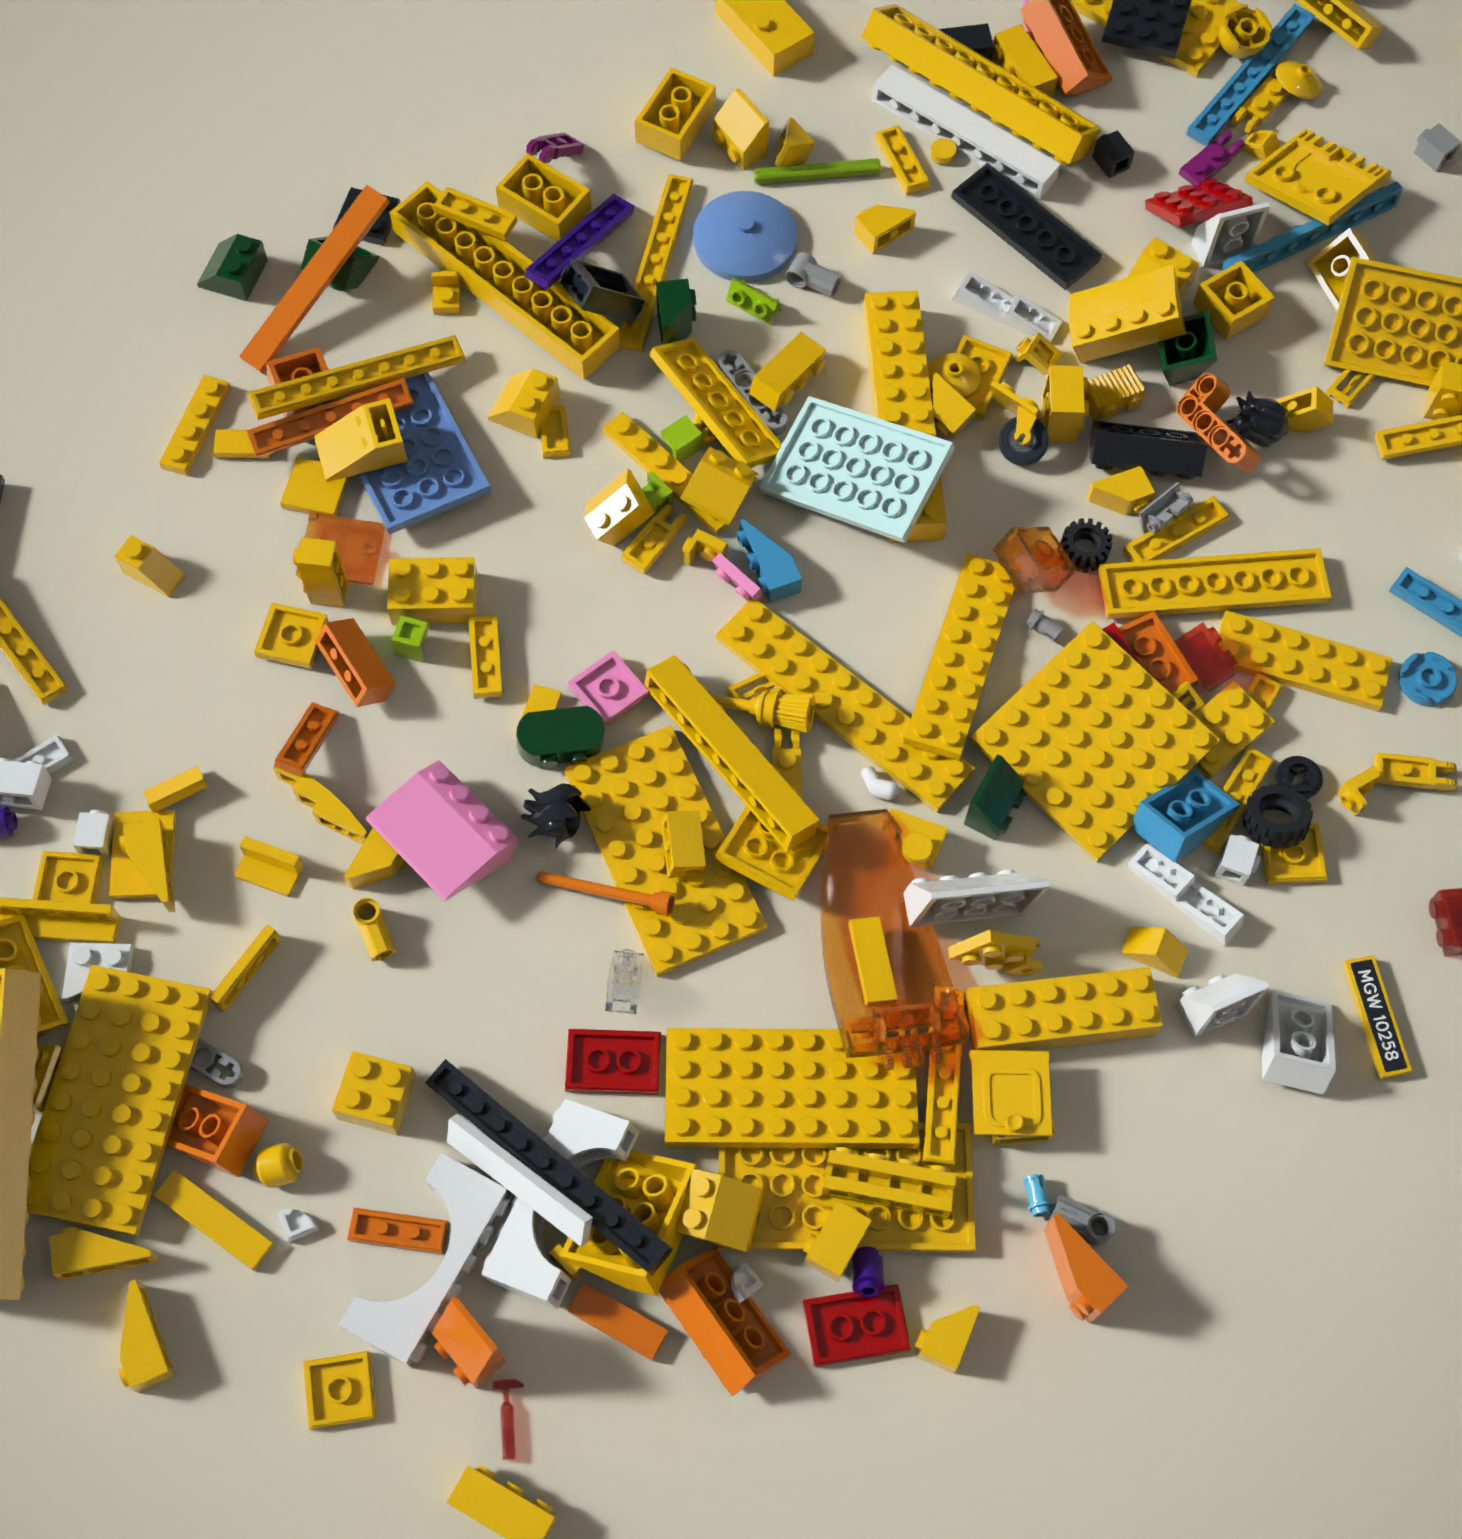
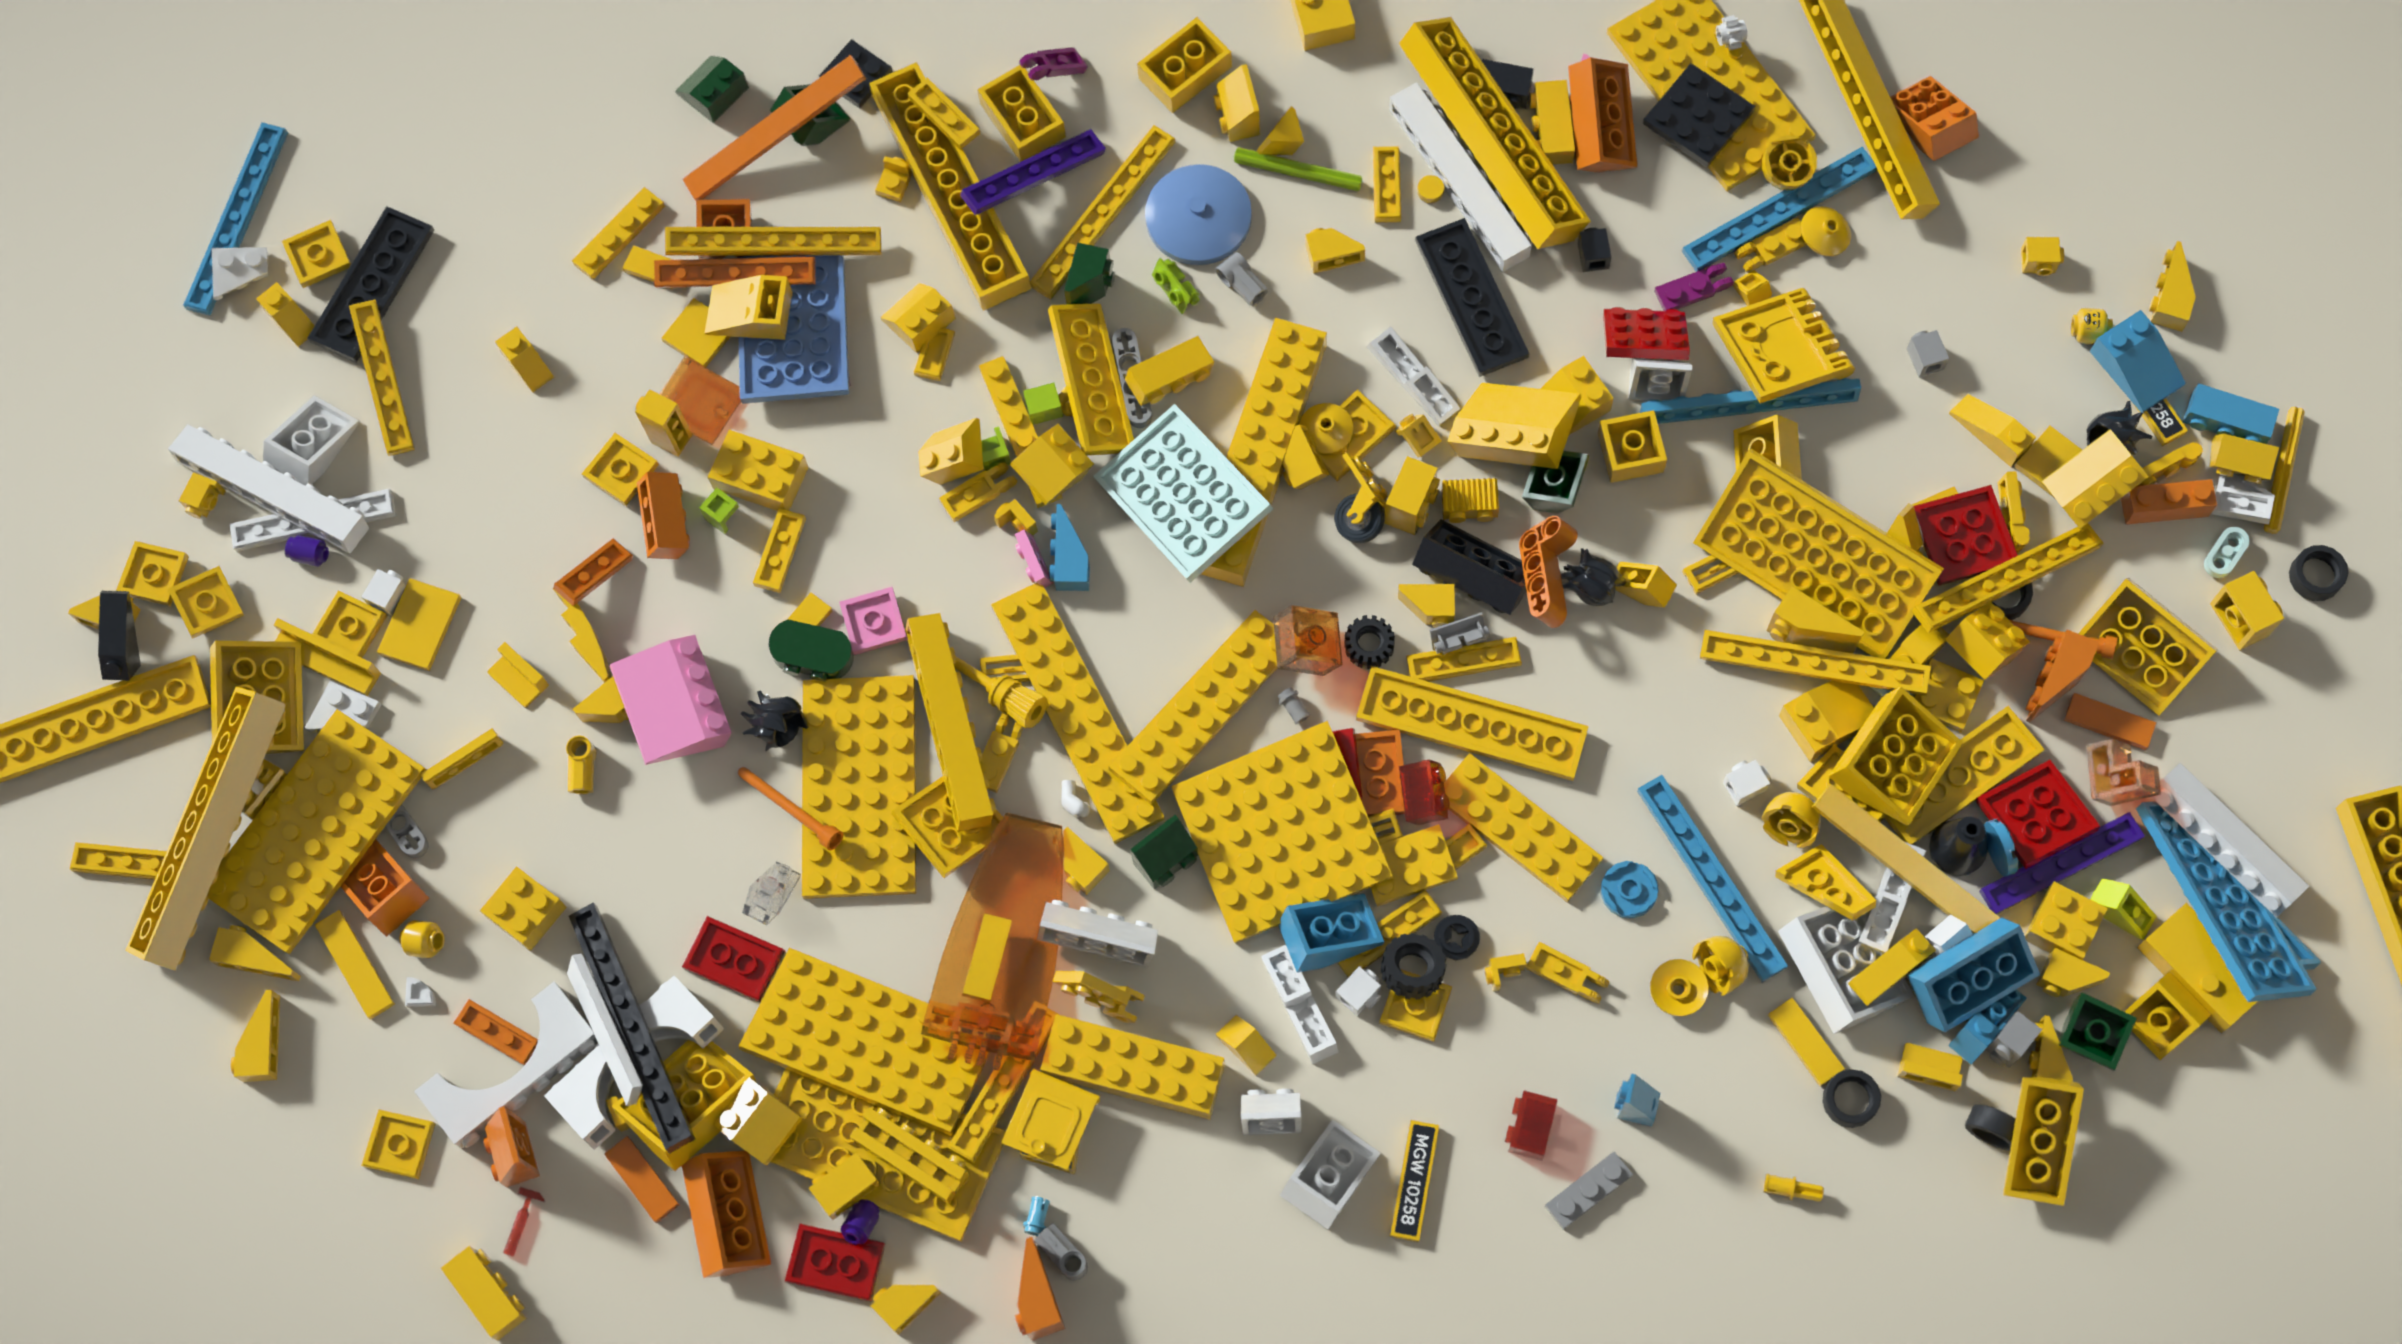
camera: 30 degrees right, 5 degrees up
(148, 850) = (421, 626): yellow slope -> none
(175, 789) = (467, 575): yellow tile -> none
(602, 291) = (1014, 212): black window -> none
(683, 843) = (870, 790): yellow hinge -> none
(744, 1282) = (758, 1189): white tile -> none
(917, 848) = (1070, 872): yellow tile -> none

